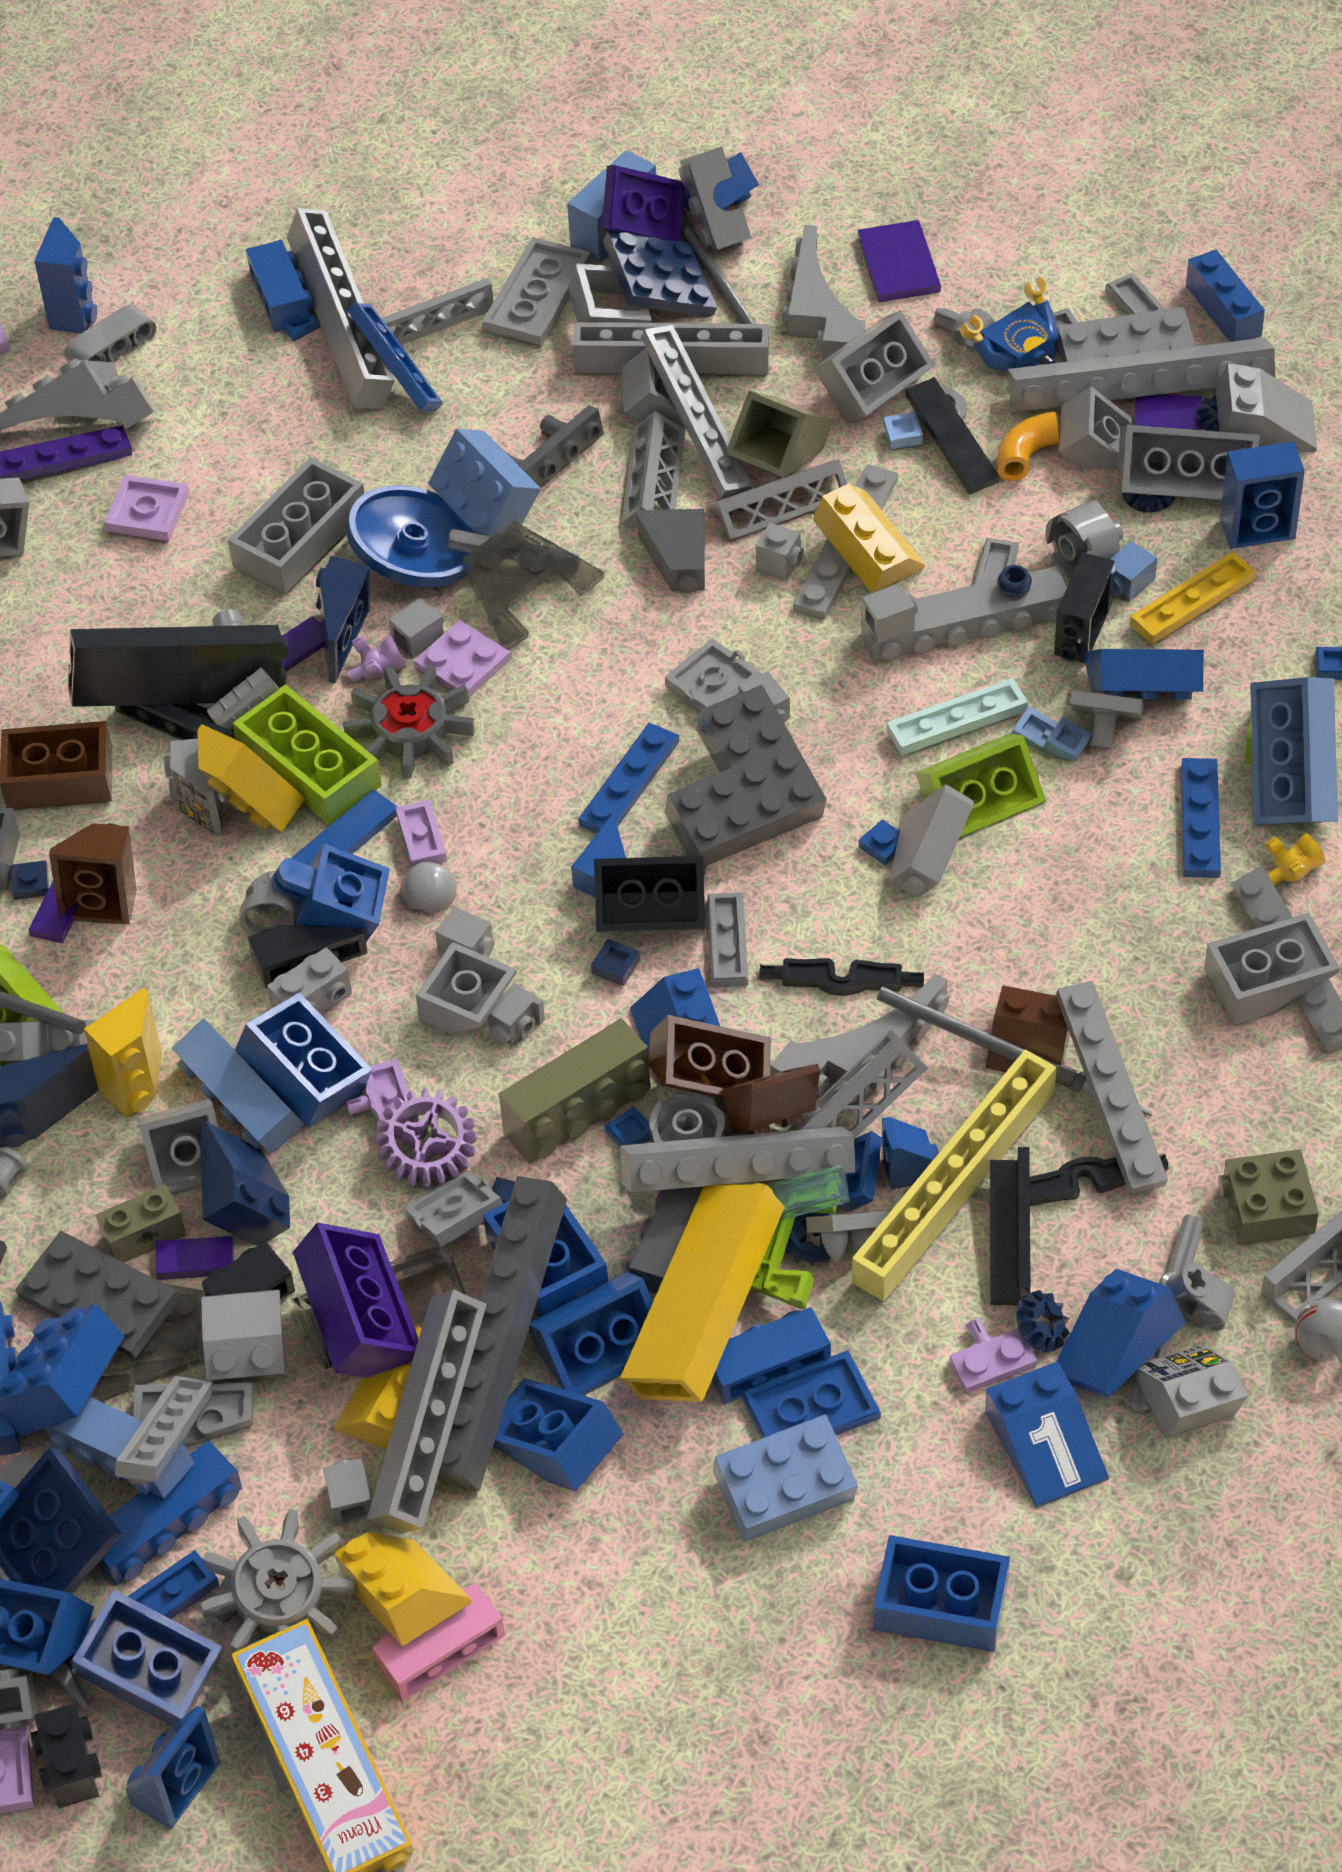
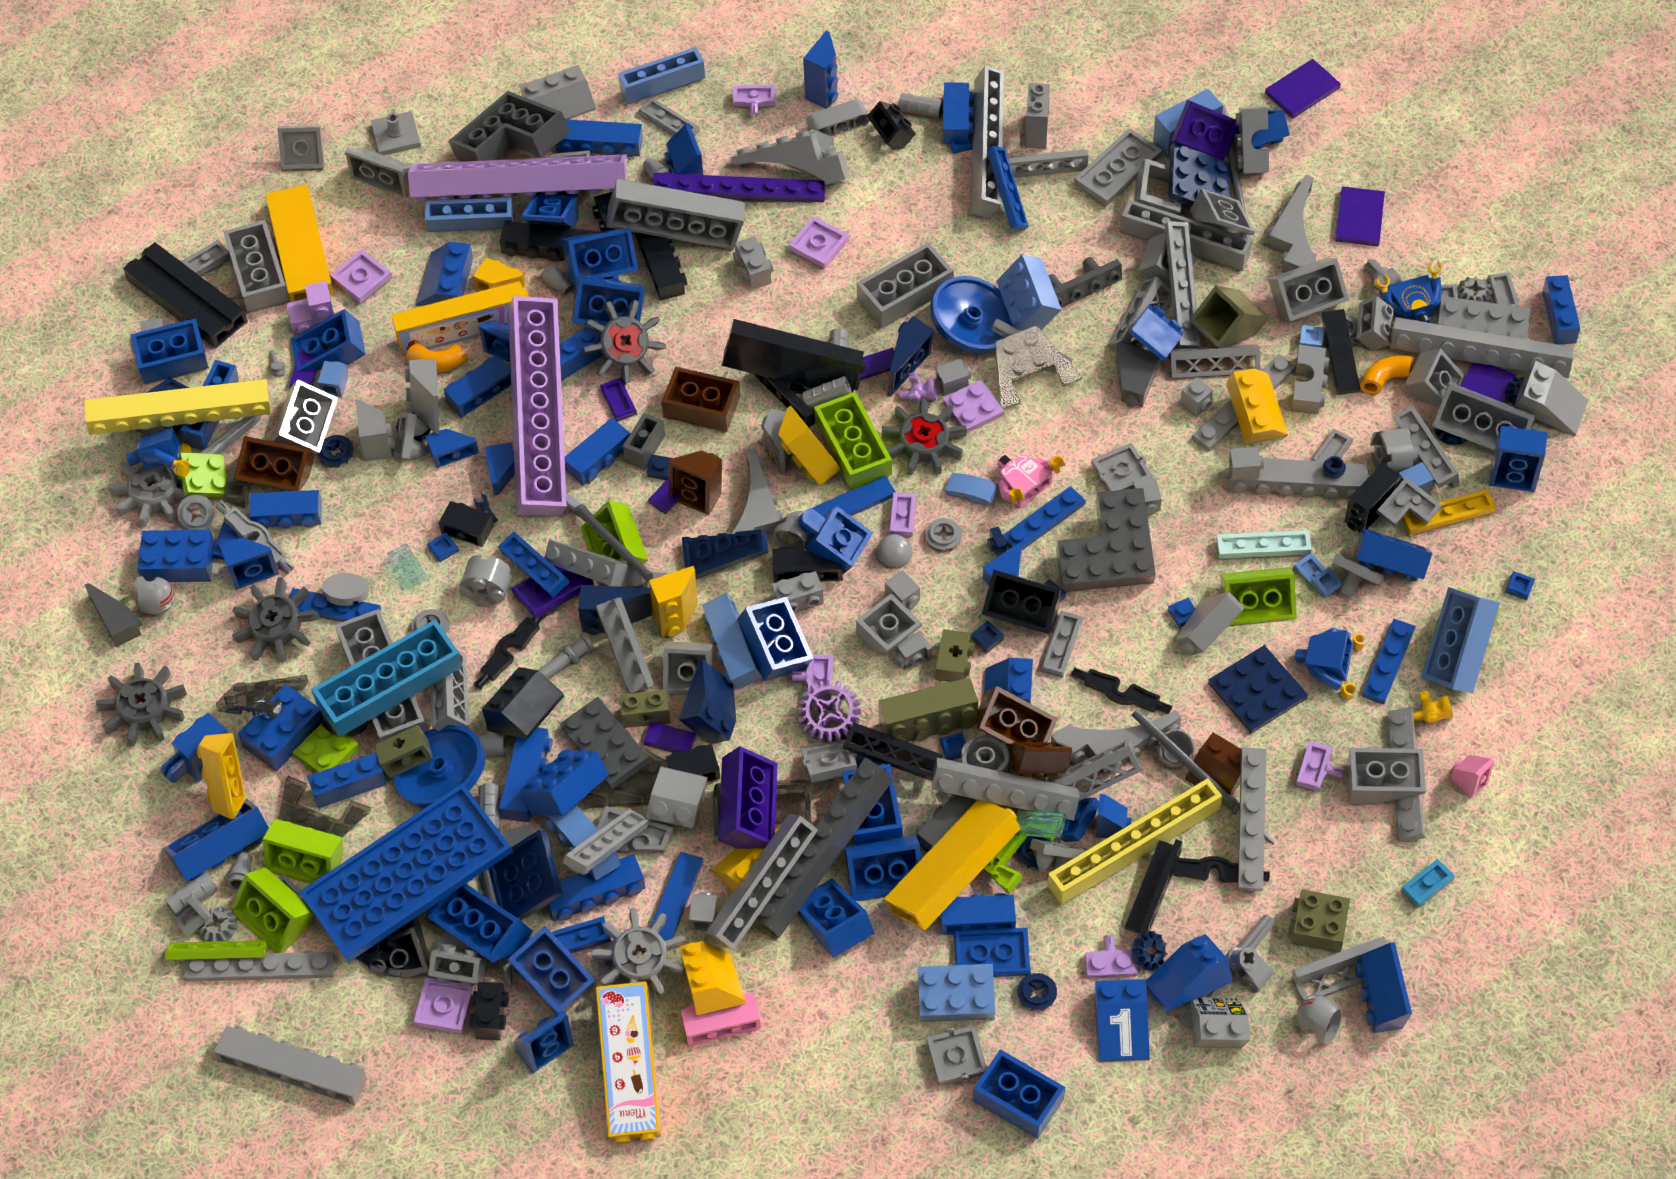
camera: 20 degrees right, 5 degrees up
(61, 561) = (753, 264): none -> light grey brick
(77, 1139) = (624, 645): none -> light grey fence
(176, 959) = (723, 550): none -> dark blue wing
(191, 325) = (891, 124): none -> black brick
(208, 899) = (760, 506): none -> light grey arch
(222, 290) = (920, 105): none -> light grey axle
(296, 1474) = (678, 892): none -> blue tile
(398, 253) = (1037, 115): none -> light grey window
(500, 833) = (952, 531): none -> light grey gear
(509, 766) = (975, 488): none -> medium blue slope
(553, 1161) = (893, 748): none -> black fence
(575, 828) = (996, 541): none -> dark blue plate
(577, 1002) = (954, 644): none -> olive brick
(581, 728) = (1026, 477): none -> bright pink torso
(688, 478) = (1156, 331): none -> slope
(711, 303) = (1221, 213): none -> light grey slope
(749, 124) = (1302, 88): none -> dark purple tile
(822, 1570) = (956, 1055): none -> light grey plate
(895, 1423) = (1037, 981): none -> dark blue gear
(921, 463) = (1311, 364): none -> light grey arch
(951, 1044) = (1183, 741): none -> light grey hair
(983, 385) = (1374, 323): none -> light grey brick
(1034, 912) = (1257, 689): none -> dark blue plate
(1083, 309) = (1465, 289): none -> light grey gear
(1120, 837) = (1330, 658): none -> blue torso
(1134, 592) = (1408, 498): none -> light grey plate
(1135, 522) = (1428, 448): none -> light grey fence
(1166, 989) = (1316, 767): none -> lavender plate

